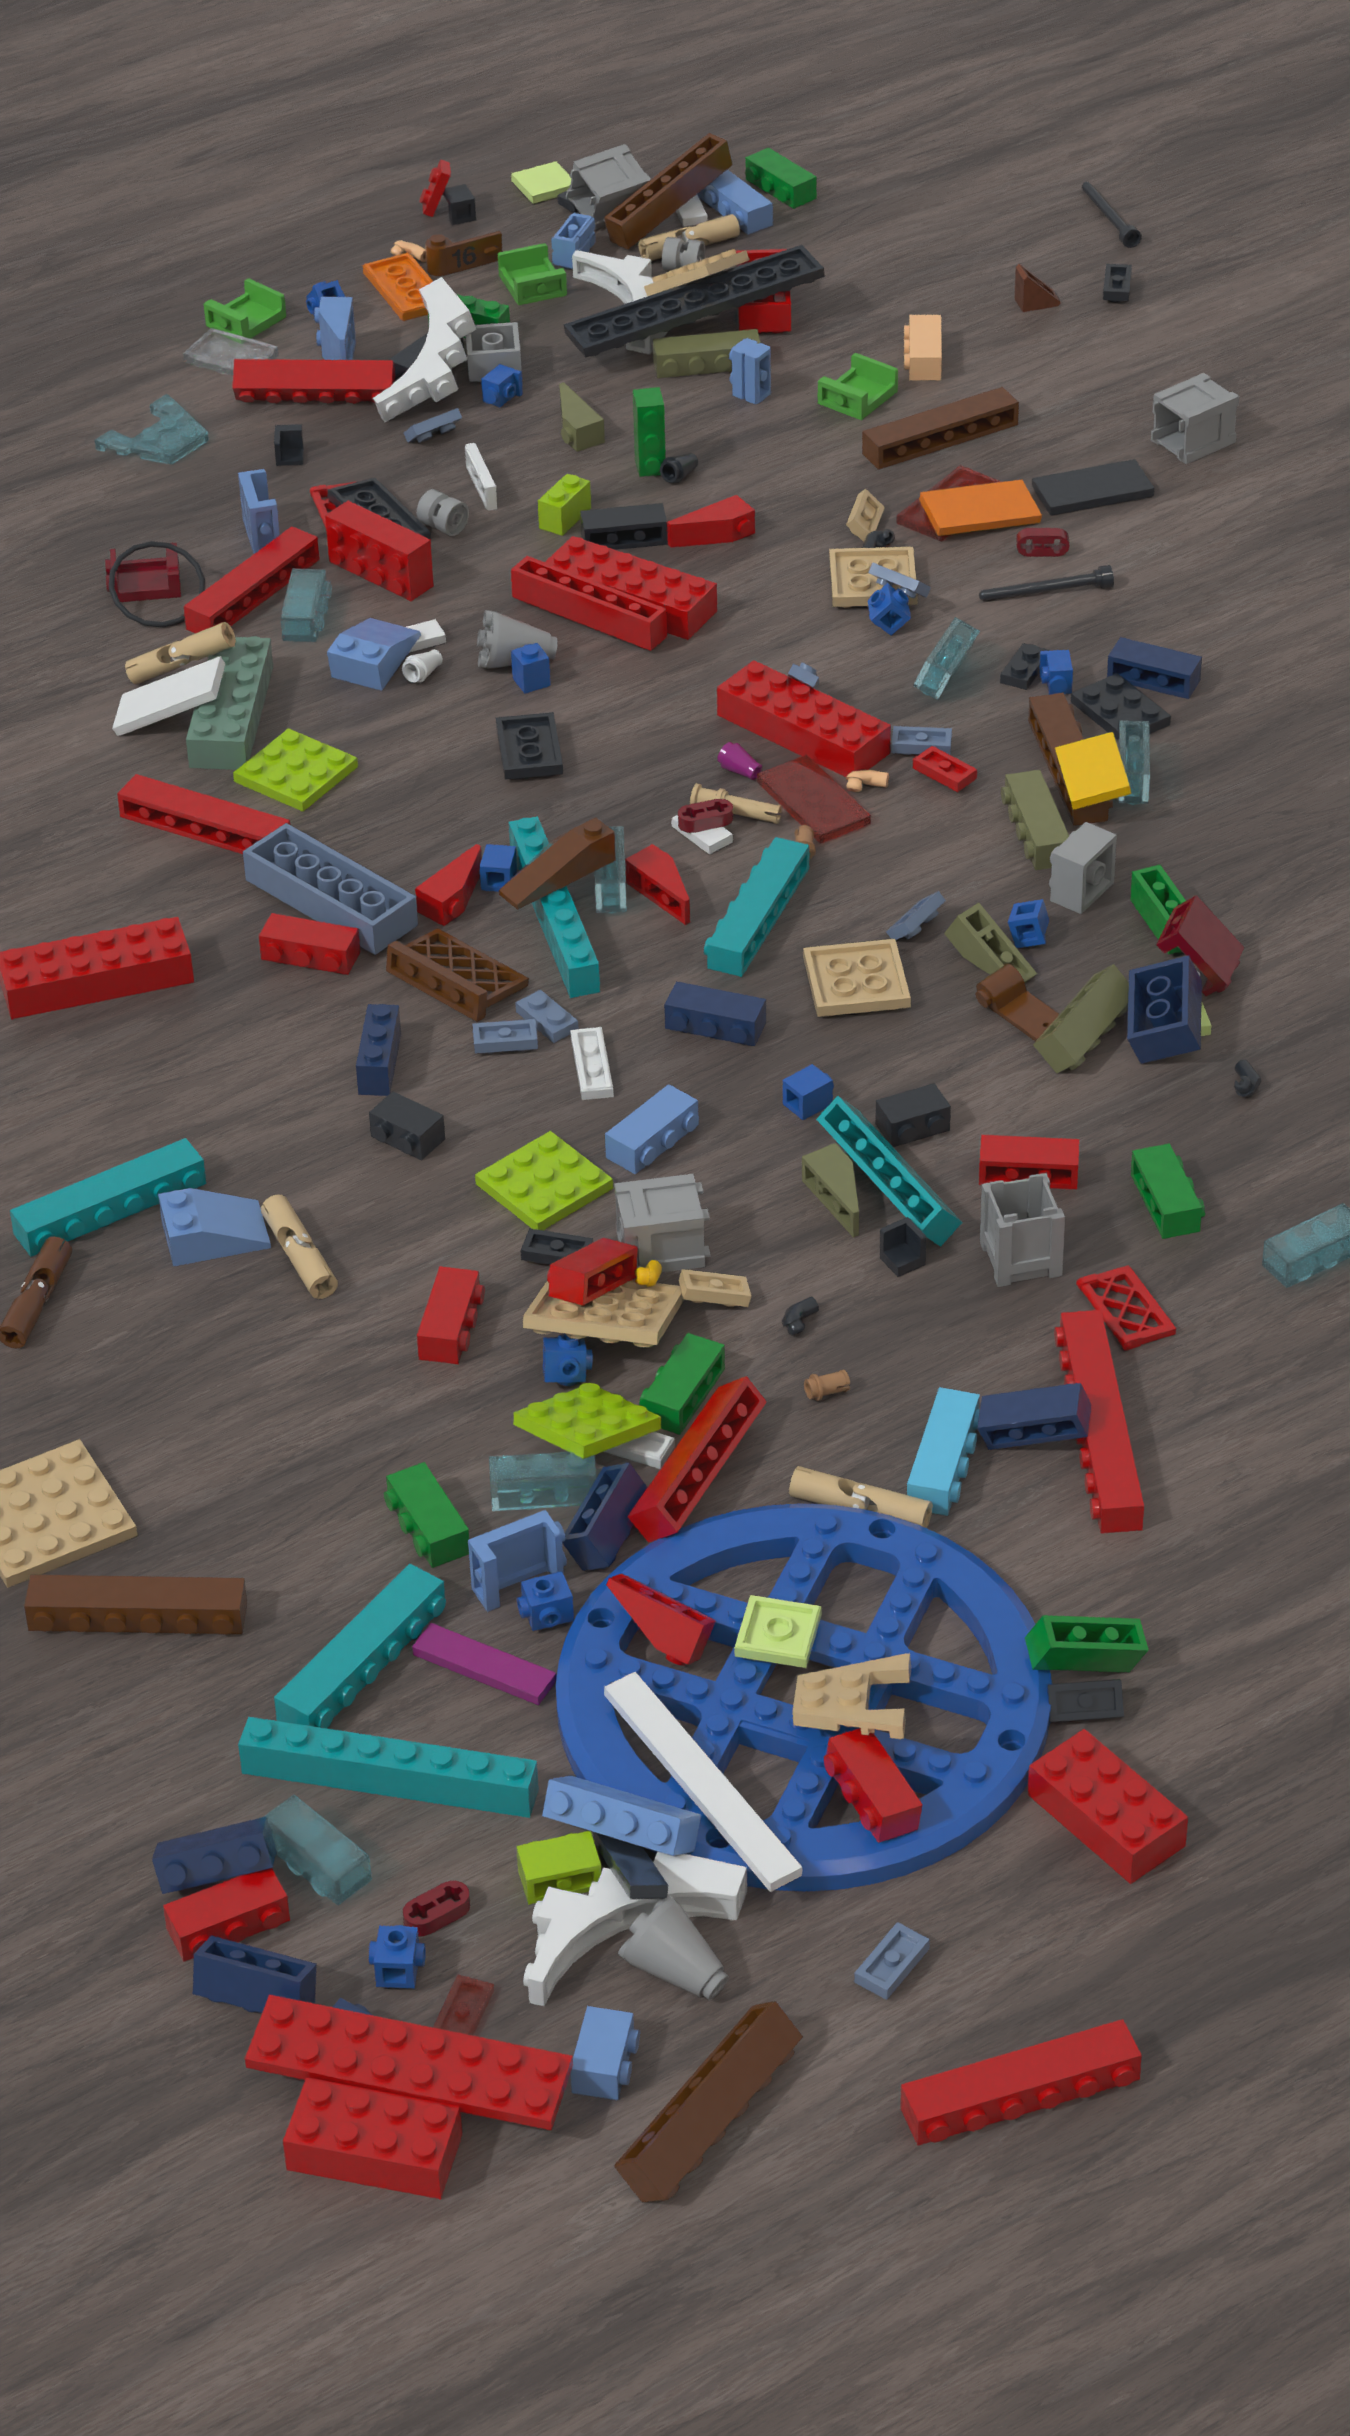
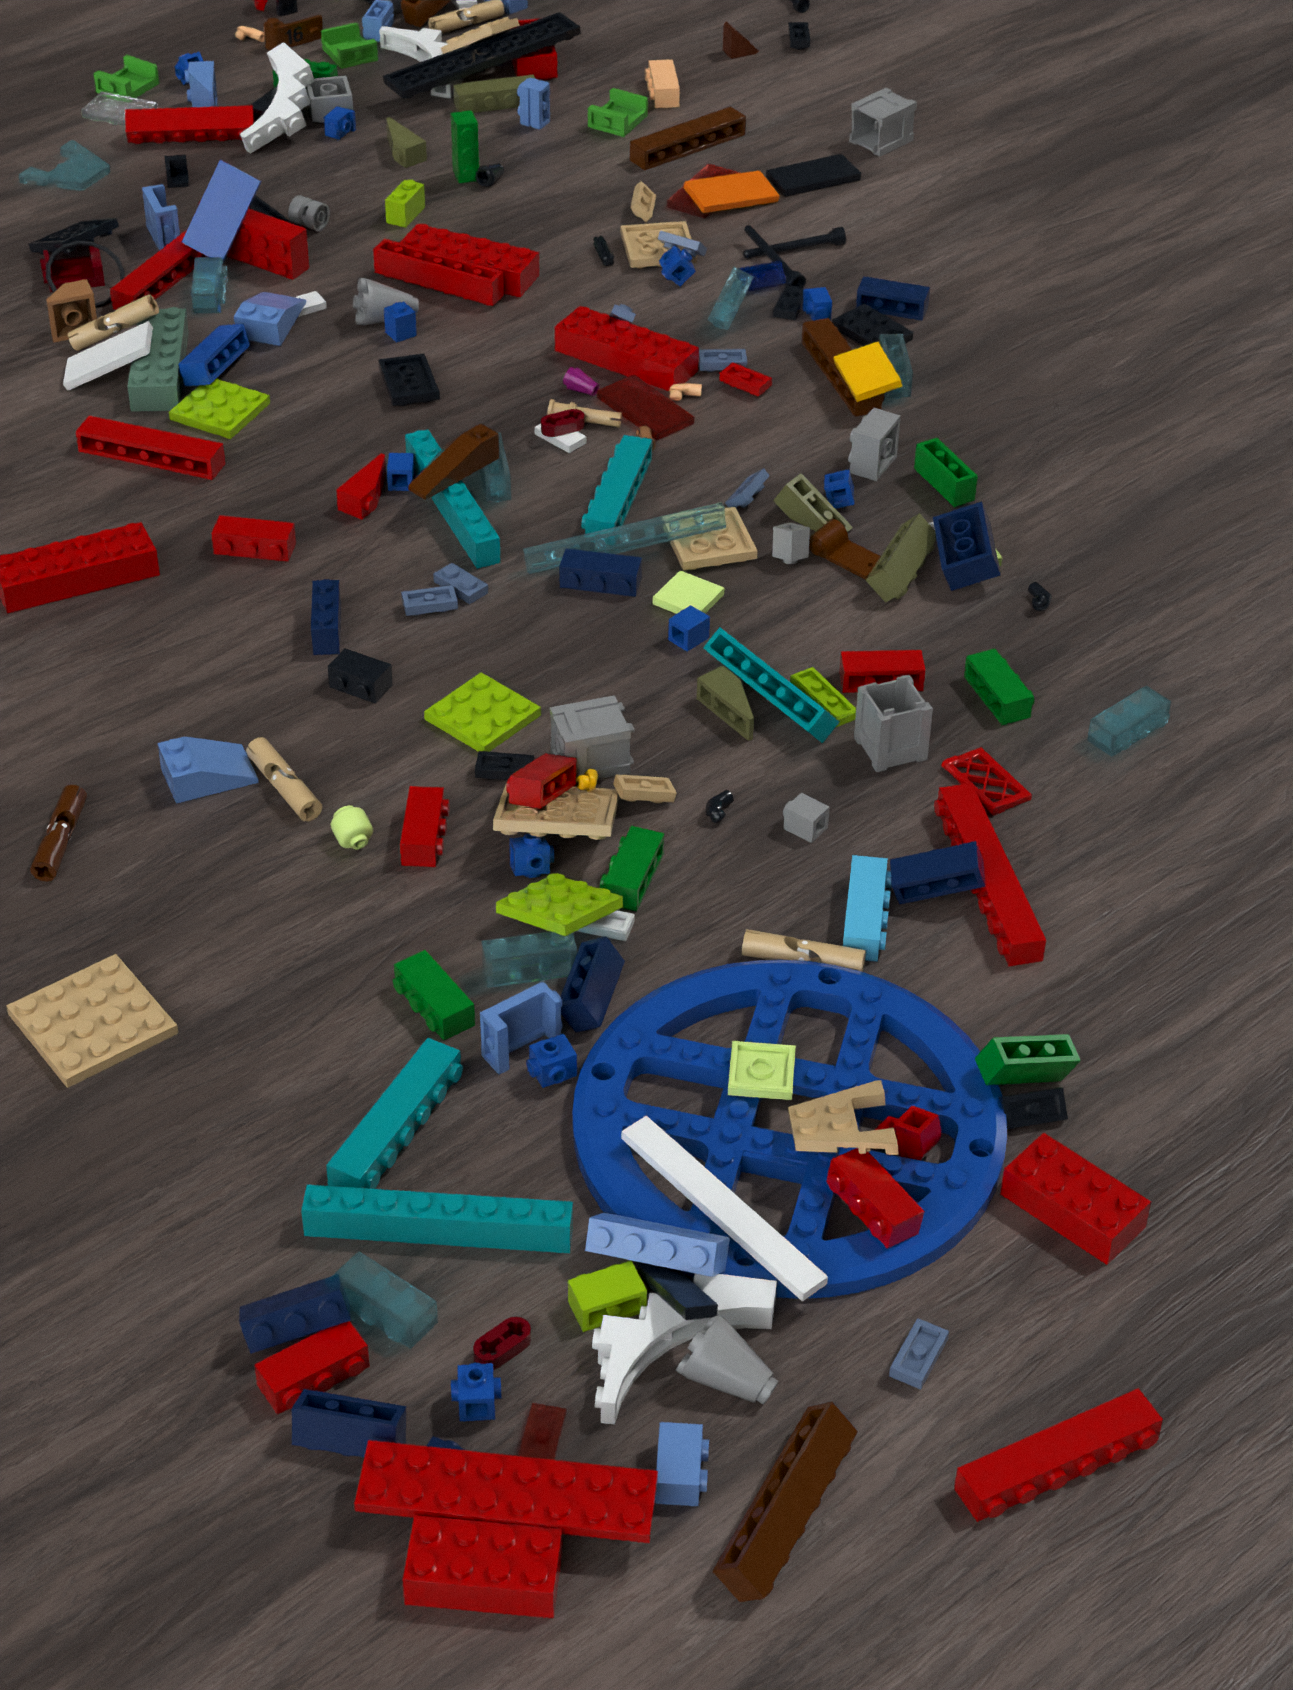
camera: 10 degrees left, 0 degrees up
(108, 1196) = (111, 749): teal brick -> none
(132, 631) = (70, 308): none -> medium nougat slope
(136, 1604) = (186, 1093): reddish brown brick -> none
(156, 526) = (81, 231): none -> black plate
(296, 701) = (214, 355): none -> blue brick
(328, 512) = (221, 211): none -> tile
(330, 887) = (264, 492): sand blue brick -> none
(367, 1310) = (351, 827): none -> yellowish green head
(399, 284) = (247, 57): orange tile -> none
(420, 666) = (309, 325): white cone -> none
(423, 430) = (283, 156): sand blue plate -> none
(451, 984) = (373, 557): reddish brown fence -> none
(481, 476) = (334, 187): white tile -> none
(484, 1664) = (505, 1120): magenta tile -> none
(591, 1063) = (505, 618): white tile -> none
(625, 526) = (458, 216): black brick -> none
(651, 1129) = (566, 665): medium blue brick -> none
(657, 878) = (536, 475): red slope -> none
(665, 1622) = (662, 1070): red slope -> none
(679, 254) = (460, 25): light grey wheel -> none
(697, 1459) = (660, 931): red brick -> none
(713, 524) = (527, 212): red slope -> none
(756, 970) = (629, 536): none -> clear light blue tile
(803, 581) = (603, 250): none -> black axle
(817, 1045) = (686, 591): none -> yellowish green tile
(827, 1384) = (748, 862): medium nougat pin -> none
(879, 539) = (657, 217): black arm -> none
(898, 1337) = (806, 817): none -> light grey brick
(902, 1247) = (794, 744): black panel -> none
(913, 1115) = (780, 640): black brick -> none
(935, 1717) = (915, 1132): none -> red brick
(952, 990) = (790, 542): none -> light grey brick
(952, 1186) = (824, 694): none -> lime tile
(997, 627) = (765, 275): none -> clear blue plate
(1034, 633) = (793, 278): none -> black piece
(1034, 815) = (826, 411): olive brick -> none
(1042, 542) = (785, 214): dark red beam -> none
(1205, 941) = (981, 484): dark red panel -> none

